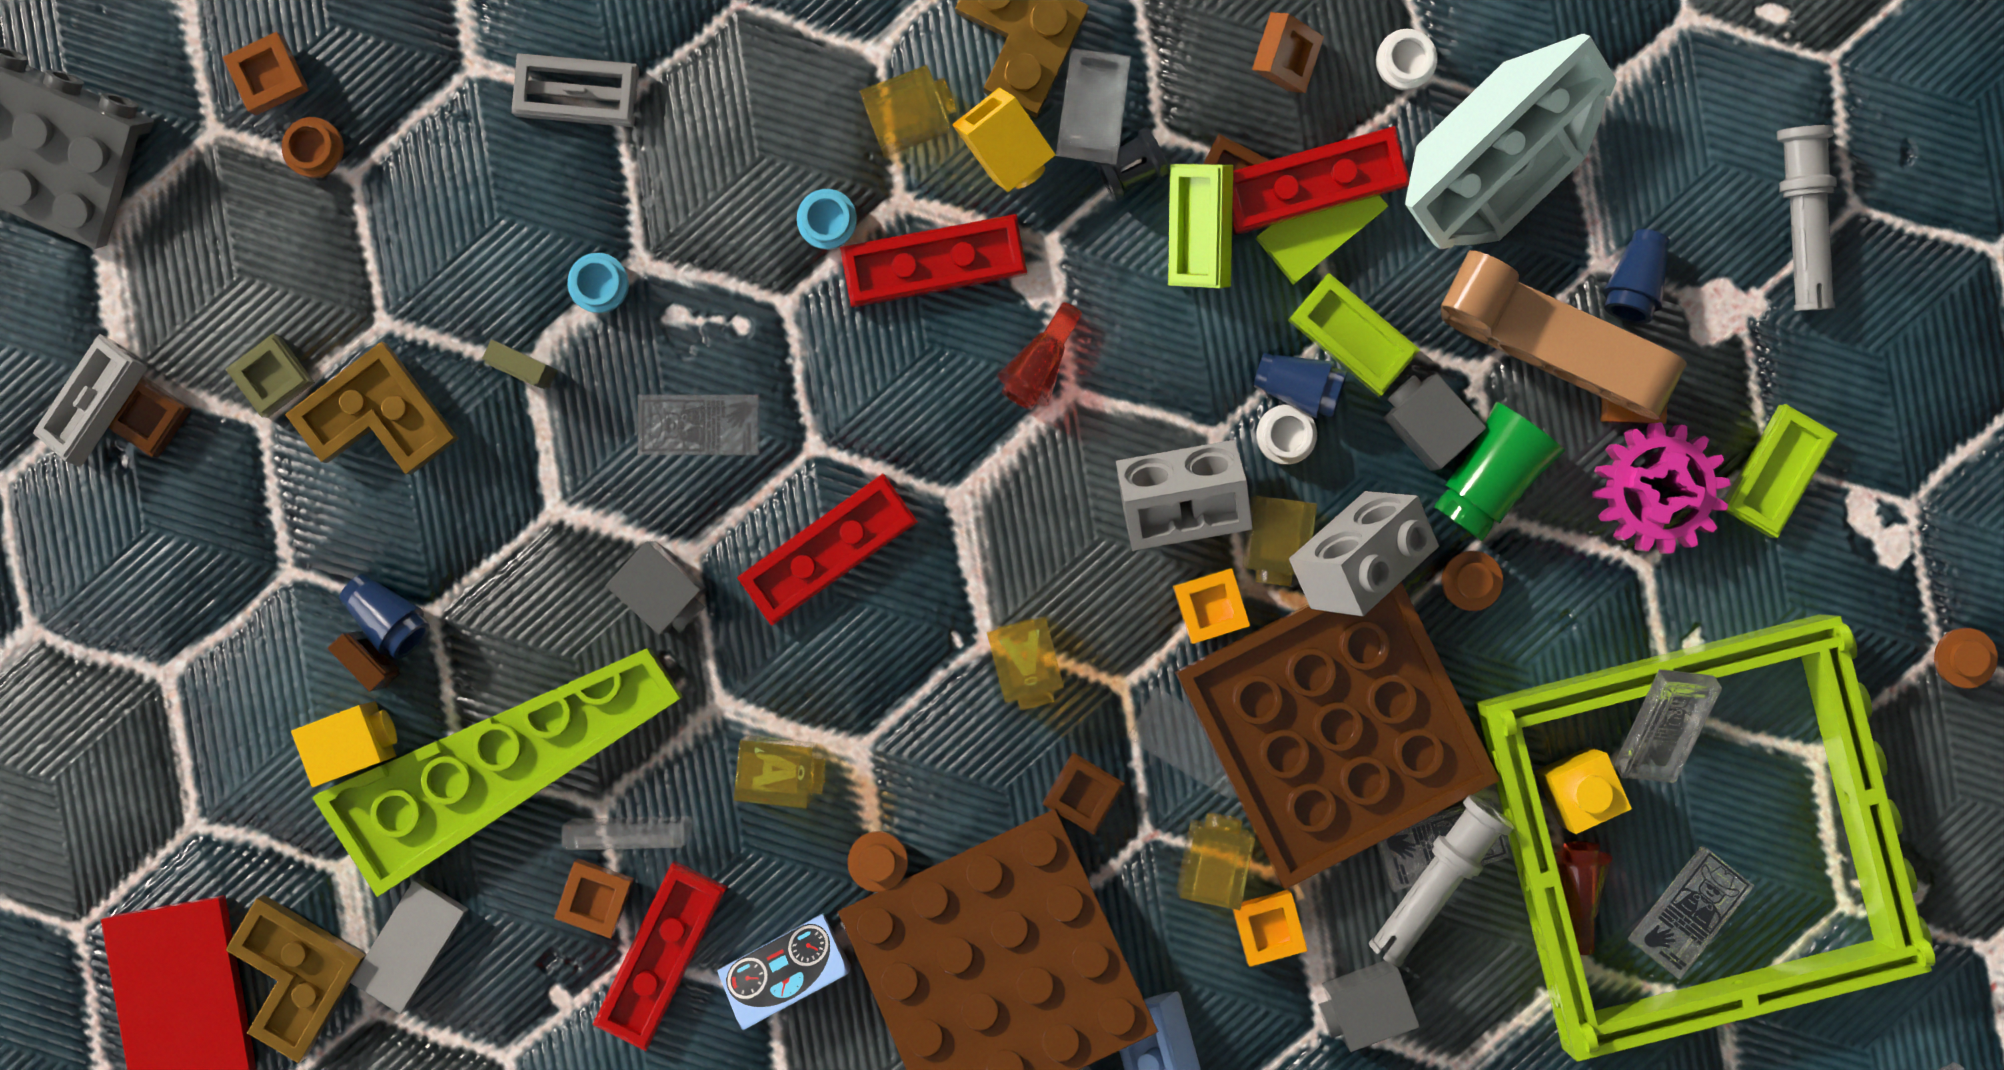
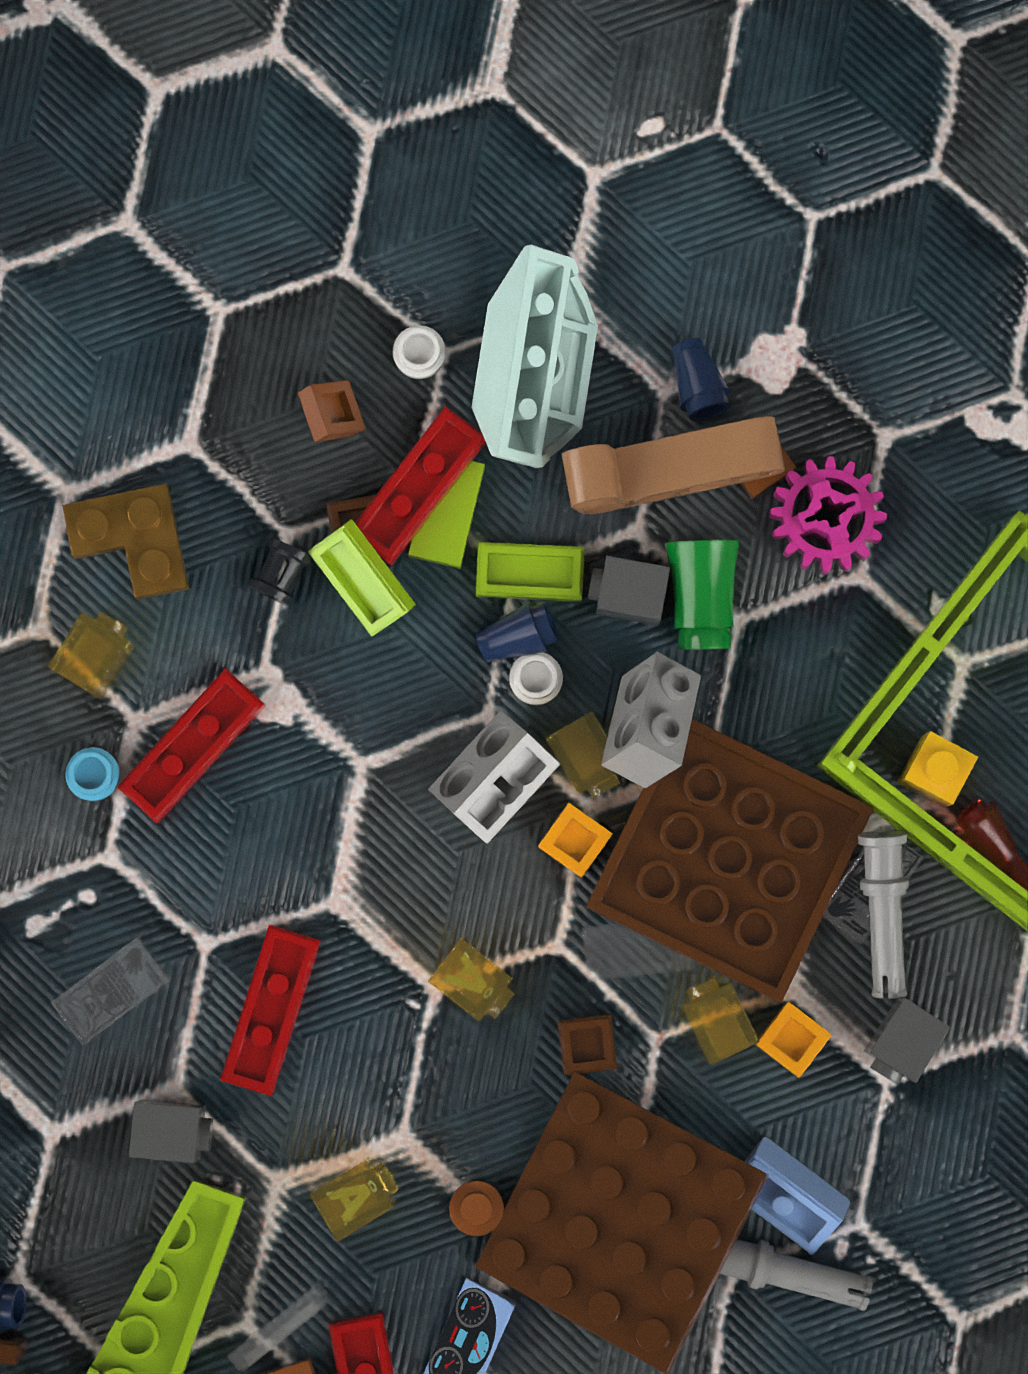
camera: 25 degrees left, 5 degrees down
(1005, 140) = (178, 623): yellow brick -> none
(1033, 372) = (321, 769): clear red cone -> none
(1093, 106) = (222, 551): clear tile -> none
(1472, 580) = (746, 681): dark orange plate -> none
(1667, 726) = (960, 679): clear tile -> none
(1778, 470) = (902, 440): lime tile -> none
(1808, 187) = (768, 230): light grey pin -> none

